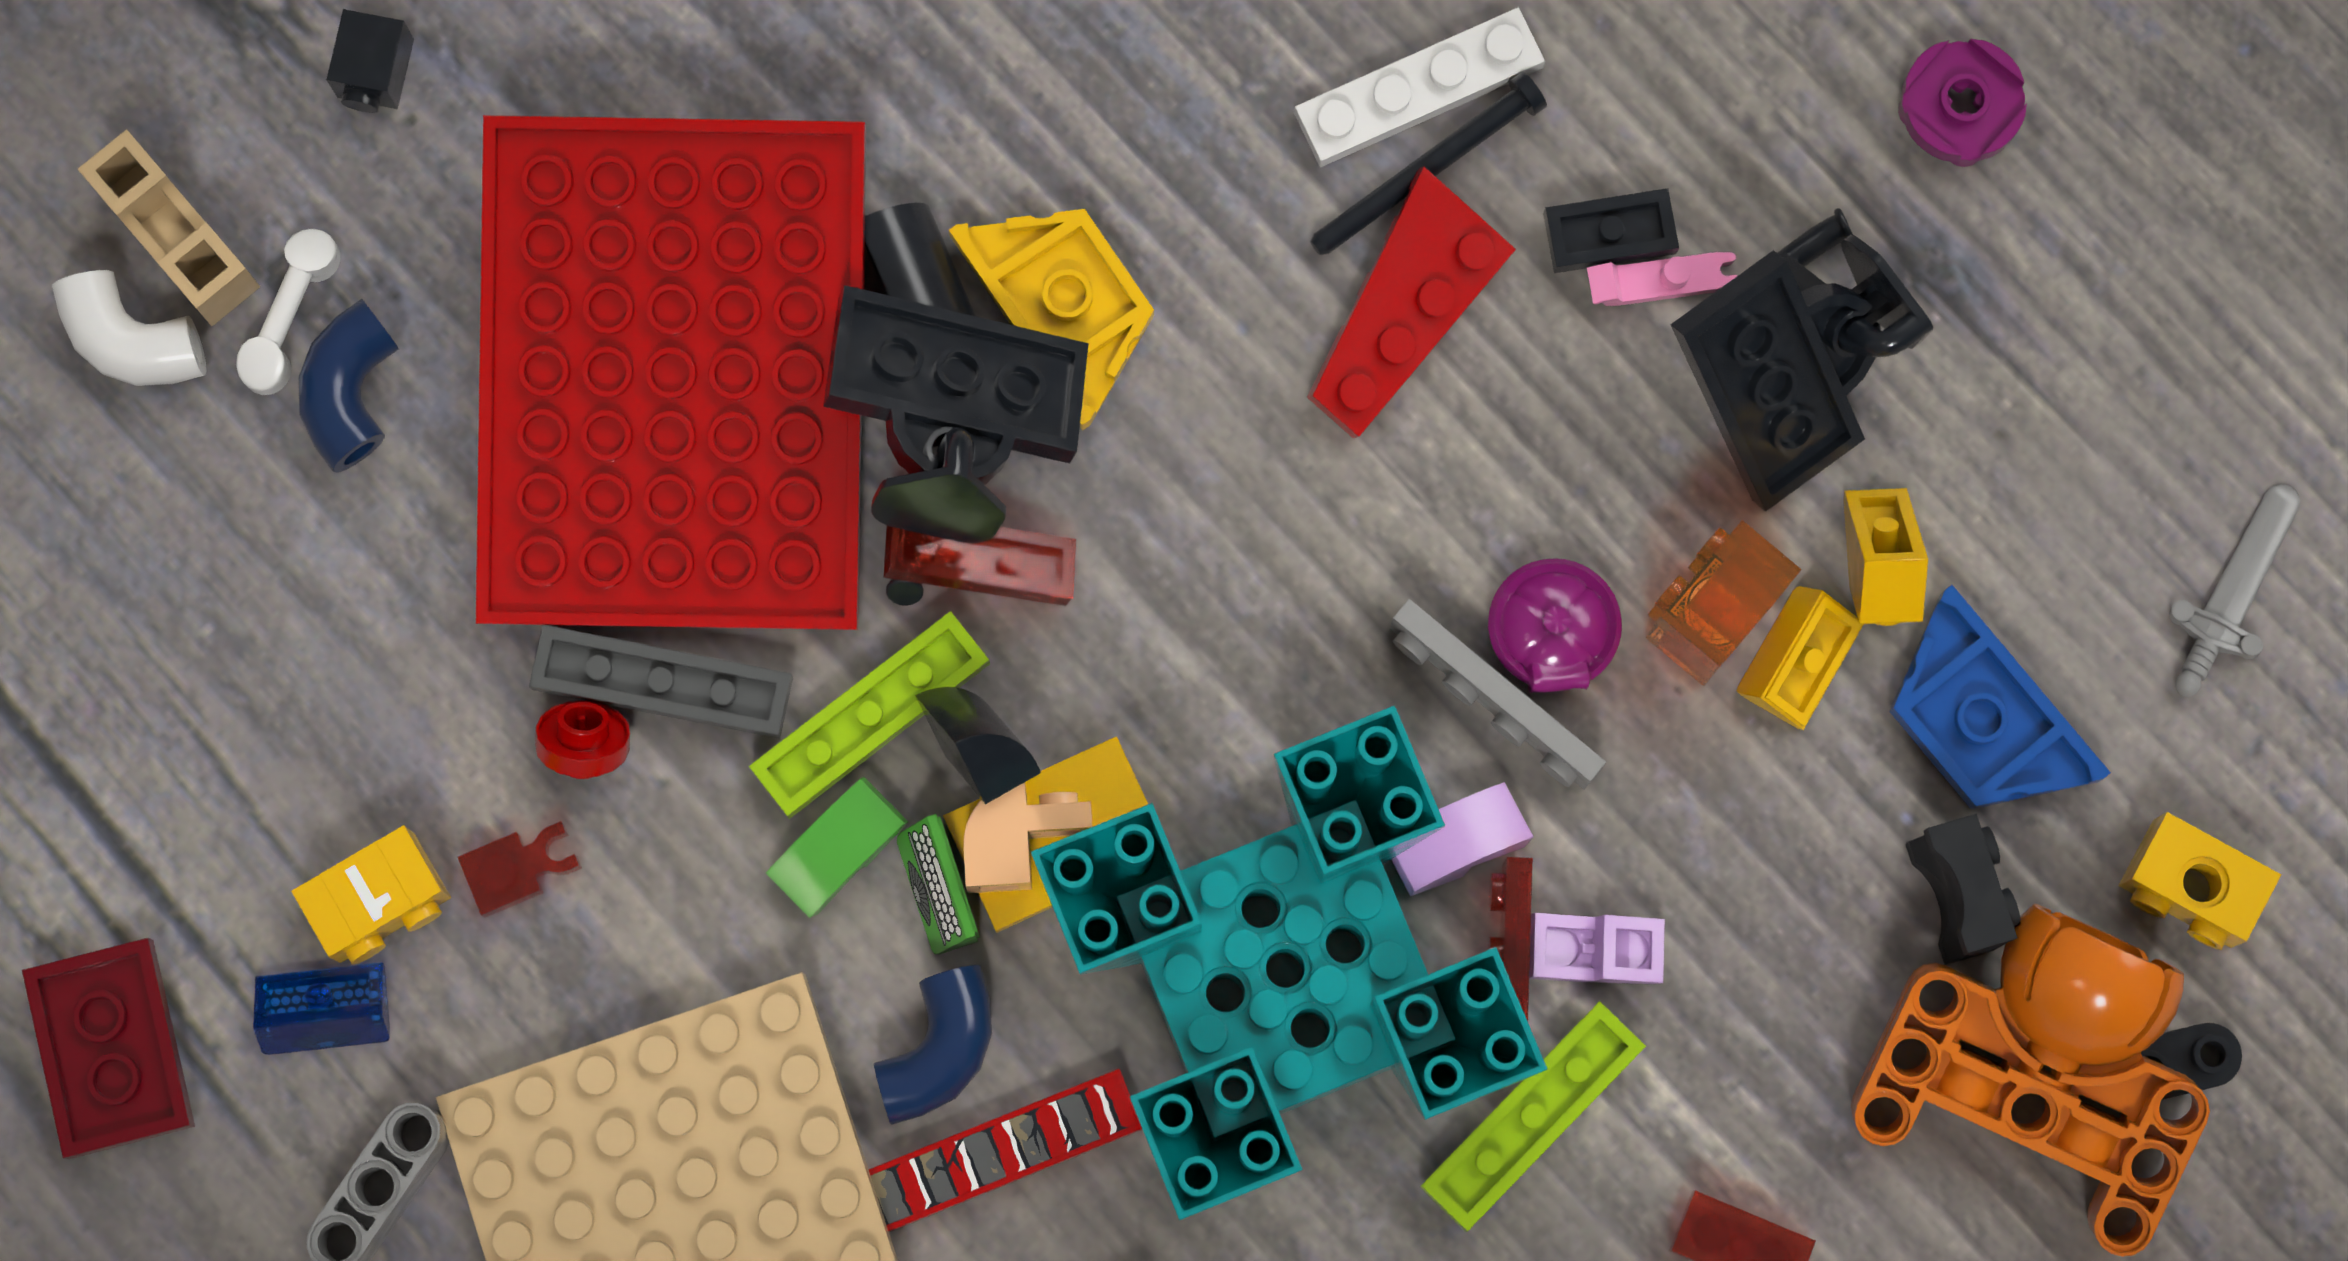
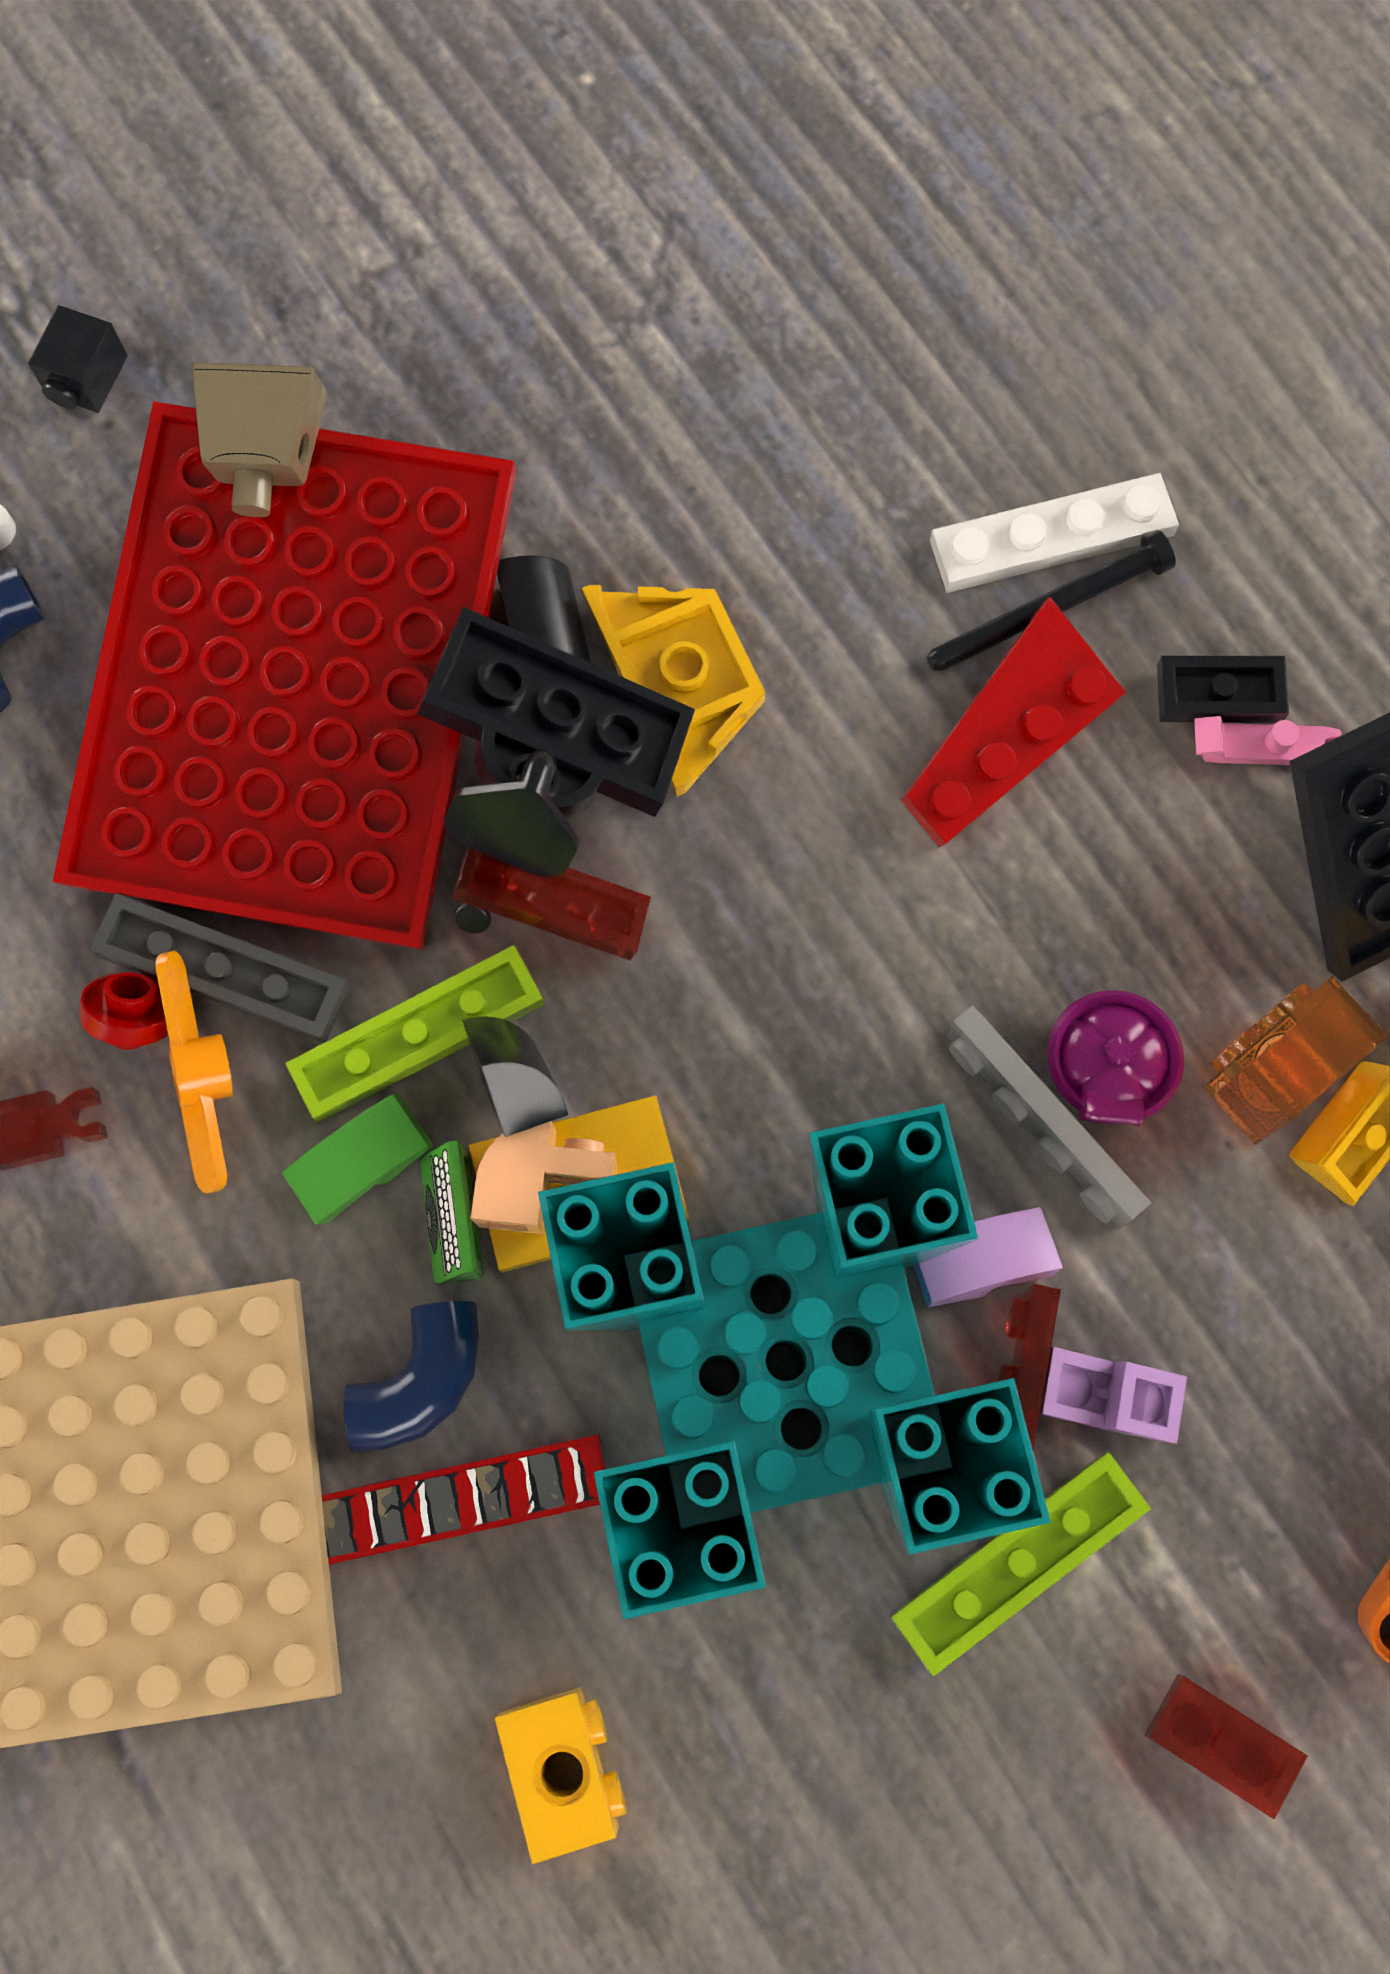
camera: 15 degrees right, 5 degrees down
(602, 136) = (257, 427): none -> dark tan torso
(666, 792) = (198, 1073): none -> light orange piece

